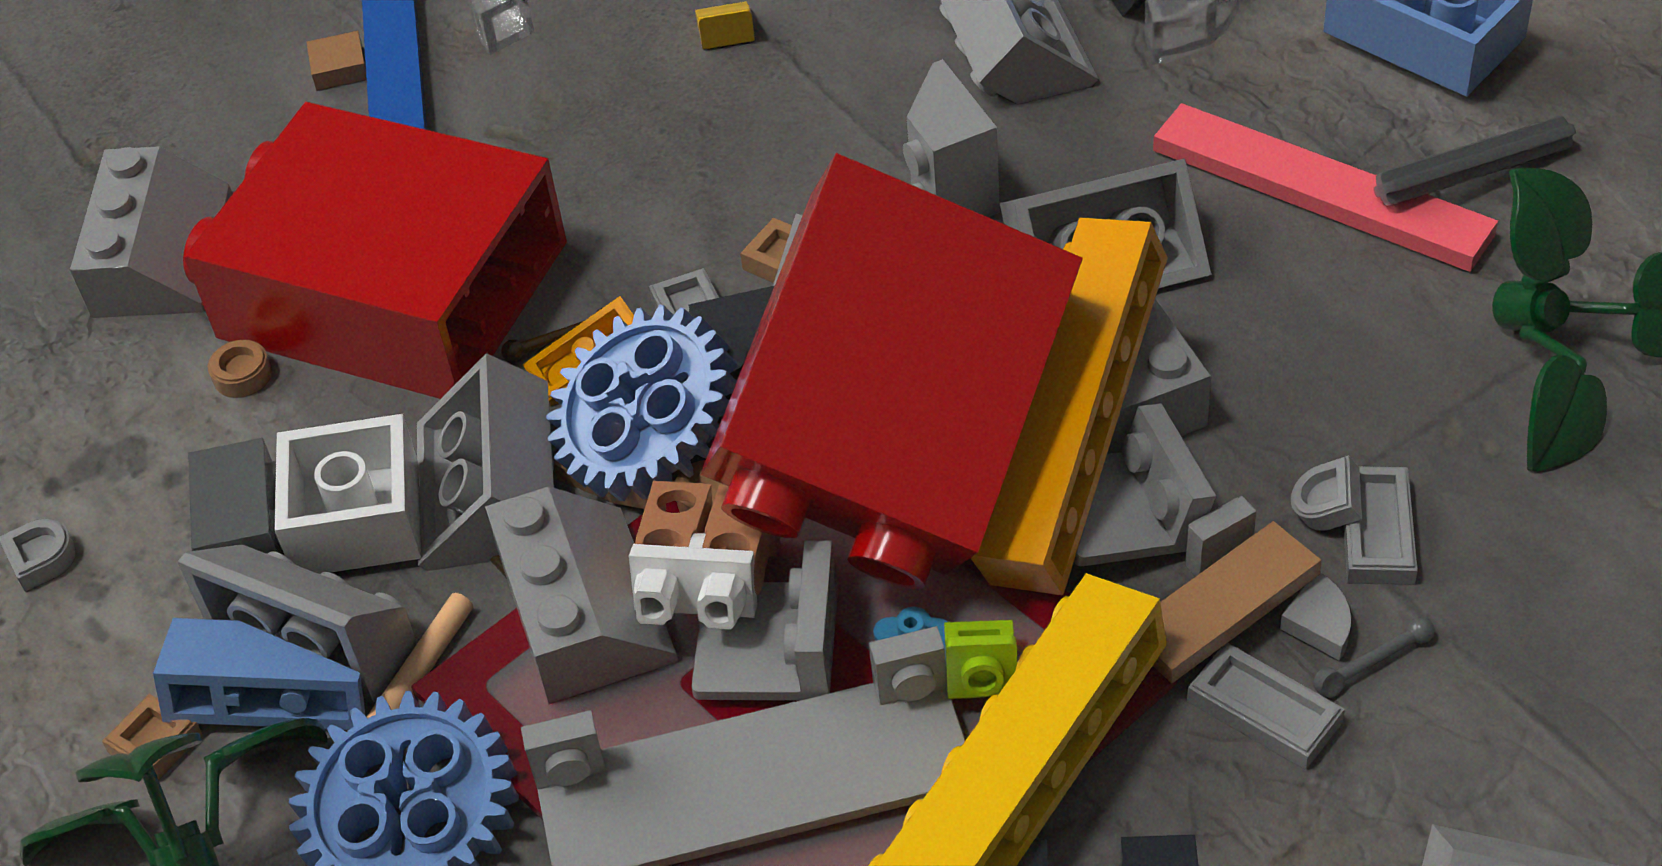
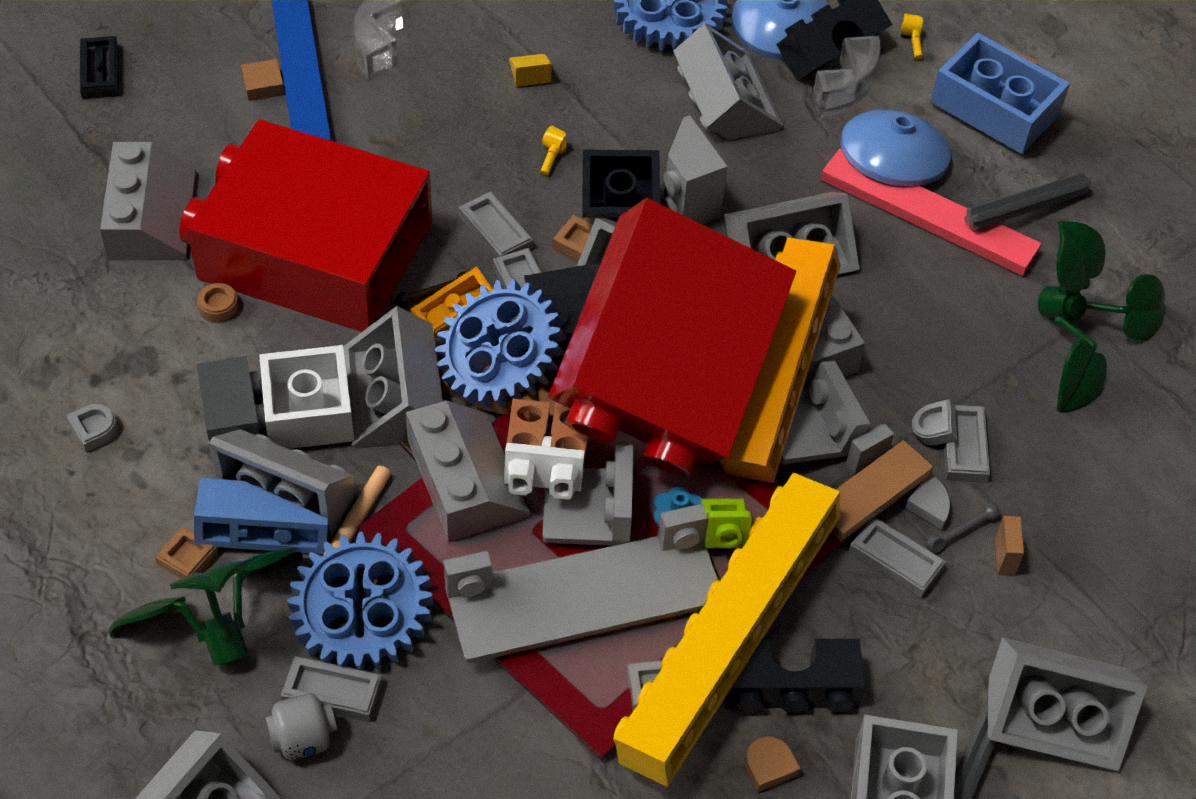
camera: 10 degrees left, 5 degrees up
(111, 80) = (99, 86): none -> black tile
(656, 240) = (494, 226): none -> light grey tile
(752, 117) = (555, 141): none -> yellow hand
(814, 141) = (618, 181): none -> black slope
(1269, 97) = (895, 148): none -> medium blue dish
(1448, 680) = (1009, 545): none -> medium nougat tile

